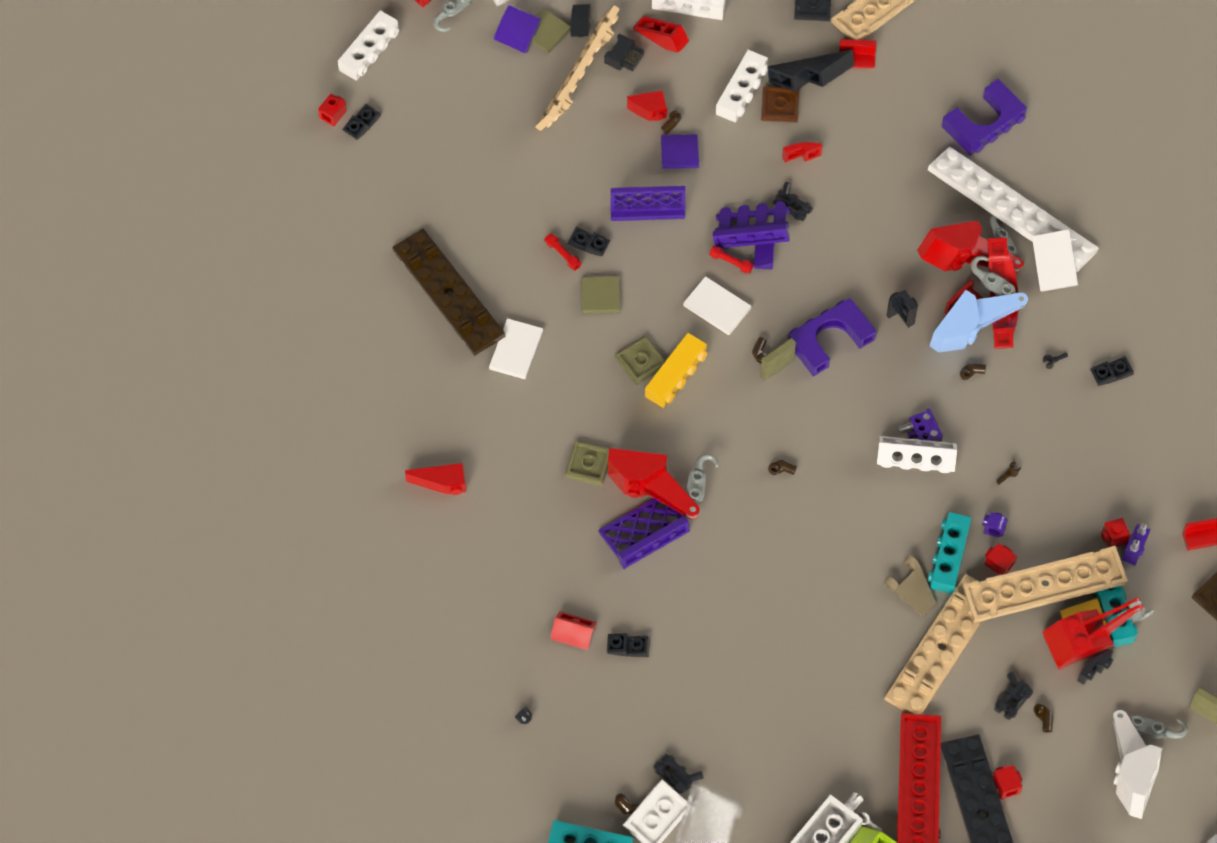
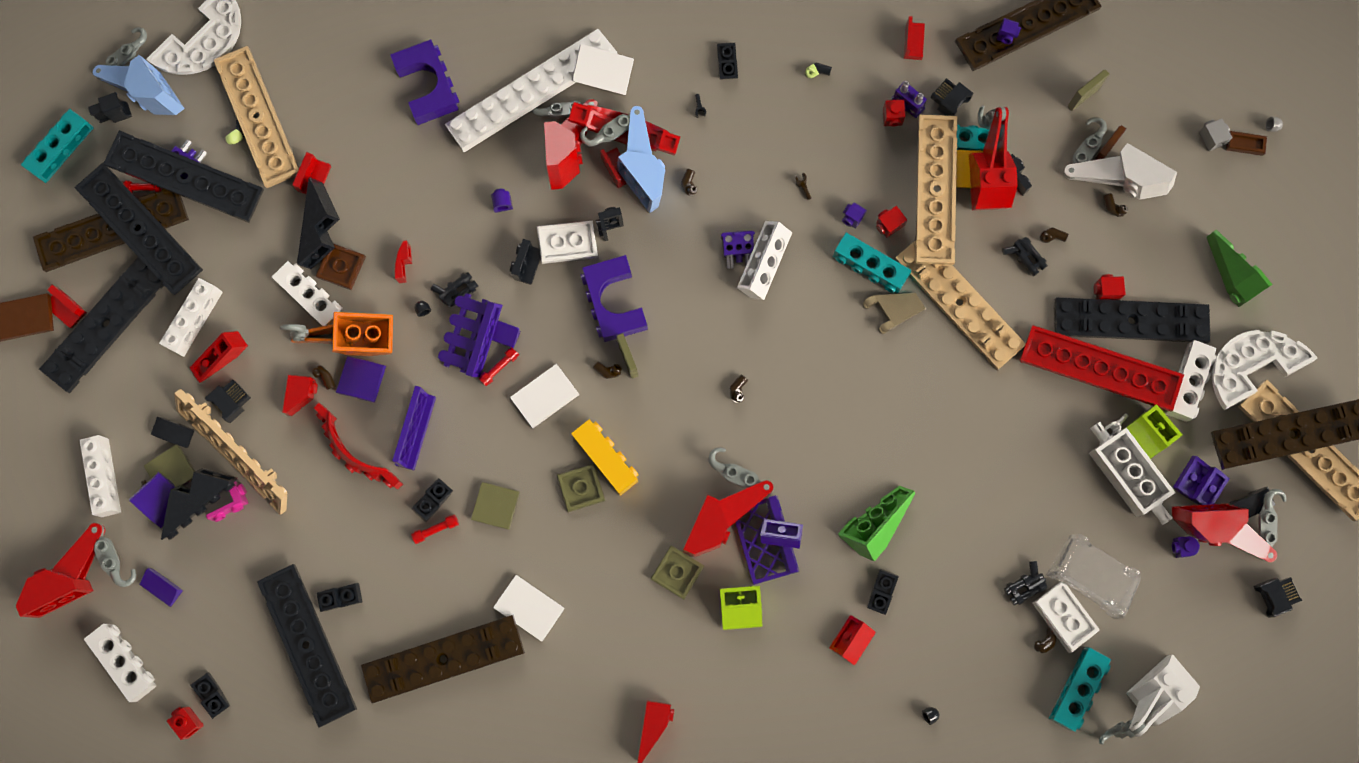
camera: 70 degrees left, 15 degrees up
(413, 192) = (316, 665): none -> black piece
(442, 55) = (160, 586): none -> dark purple slope
(477, 195) = (339, 597): none -> black slope
(522, 50) = (188, 502): none -> black slope
(537, 89) = (239, 500): none -> dark pink bracket
(573, 521) = (741, 607): none -> lime slope
(607, 155) = (352, 463): none -> red piece
(652, 534) = (781, 533): none -> dark purple slope
(682, 620) = (874, 529): none -> bright green wedge
(717, 126) = (352, 334): none -> orange slope
(763, 181) = (422, 308): none -> black hinge
(839, 251) = (526, 262): none -> black bracket
(871, 280) = (567, 242): none -> white tile
(891, 214) = (501, 200): none -> dark purple plate
(1096, 767) = (1113, 208): none -> dark brown arm
(1135, 453) = (816, 69): none -> arm
(1154, 584) = (951, 97): none -> black piece
(1168, 749) = (1111, 142): none -> reddish brown tile

